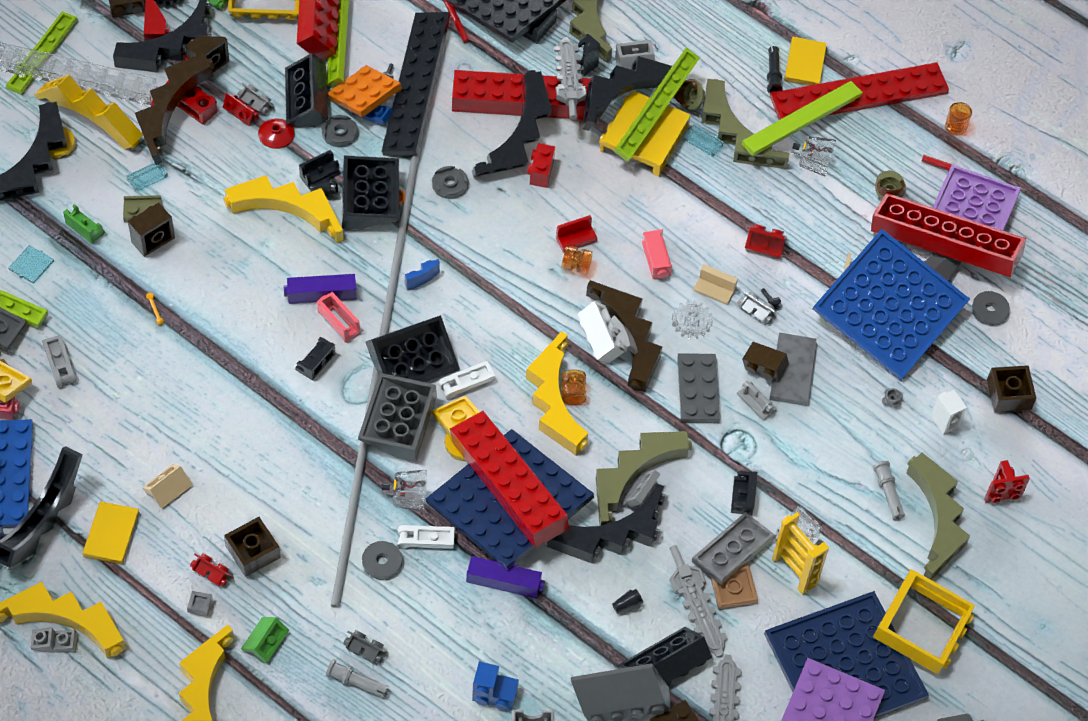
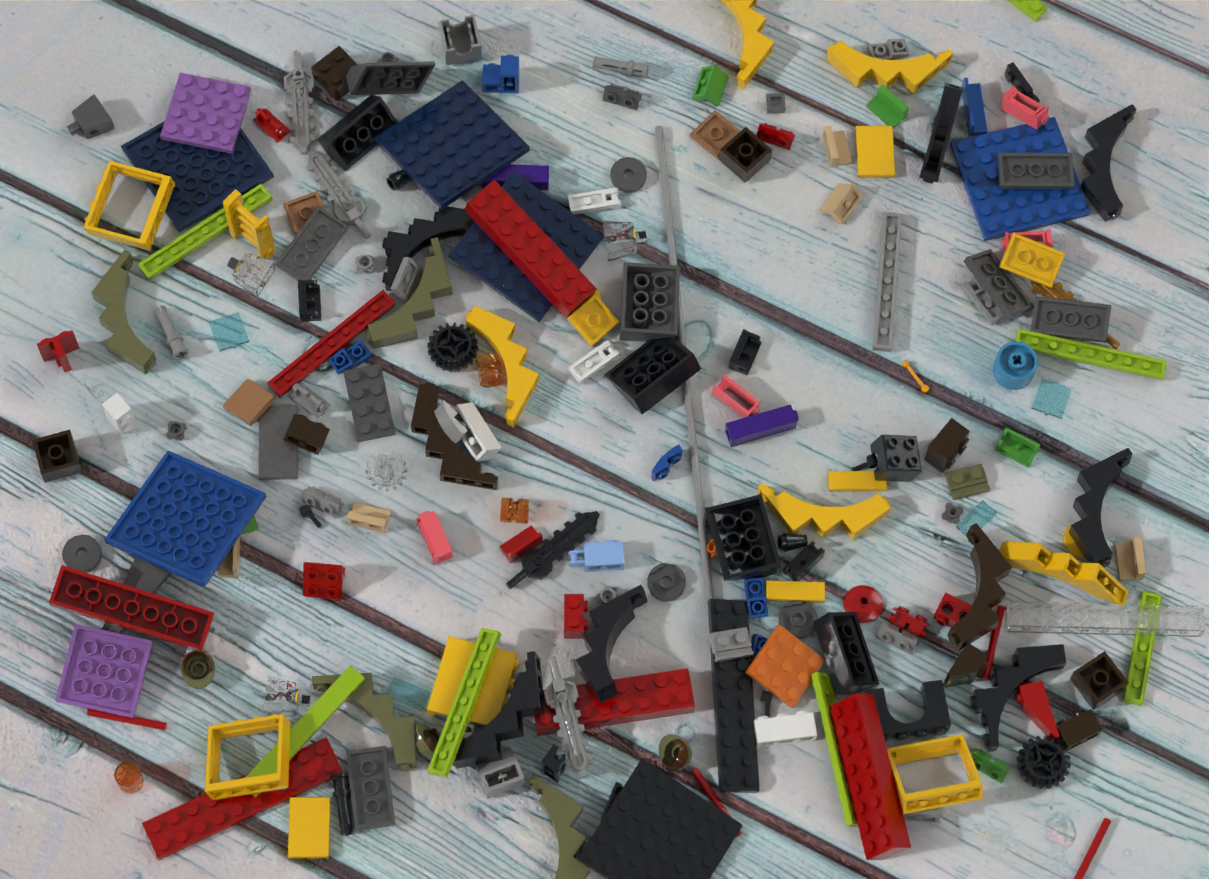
camera: 170 degrees right, 10 degrees up
(19, 117) = (1130, 560): none -> tan panel
(38, 361) = (998, 284): none -> dark grey plate
(55, 289) = (1015, 365): none -> dark azure wheel
(80, 575) = (888, 107): none -> bright green panel
(93, 27) = (1099, 680): none -> dark brown brick
(148, 398) = (887, 282): none -> light grey plate
(150, 544) = (836, 147): none -> tan panel
(167, 188) = (952, 518): none -> flat silver plate
(203, 227) = (896, 458): none -> black piece
(226, 240) = (871, 463): none -> black hand
(245, 228) = (854, 481): none -> yellow tile
(251, 30) = (934, 720): none -> black arch
(275, 586) = (714, 133): none -> medium nougat tile
(319, 146) = (795, 591): none -> yellow tile
(373, 146) = (755, 597): none -> blue slope
(379, 48) = (785, 729): none -> white brick
(408, 110) = (731, 644): none -> light grey plate
(479, 45) = (675, 752): none -> olive piece
(507, 174) = (607, 591): none -> light grey plate
(507, 209) = (599, 556): none -> light blue brick
(546, 227) = (538, 562): none -> black bar
(565, 620) = (452, 144): none -> dark blue plate
(595, 422) = (438, 352): none -> black gear
(680, 516) = (360, 260): none -> light grey plate
(711, 433) = (350, 358): none -> blue slope
(726, 447) = (331, 343): none -> red plate
(748, 77) = (370, 788): none -> dark grey plate
(758, 690) = (270, 124): none -> red hinge
(817, 406) = (249, 402): none -> medium nougat tile
(829, 484) = (229, 331): none -> clear light blue piece
(843, 586) = (199, 235): none -> lime plate
(861, 80) = (249, 785): none -> yellow window

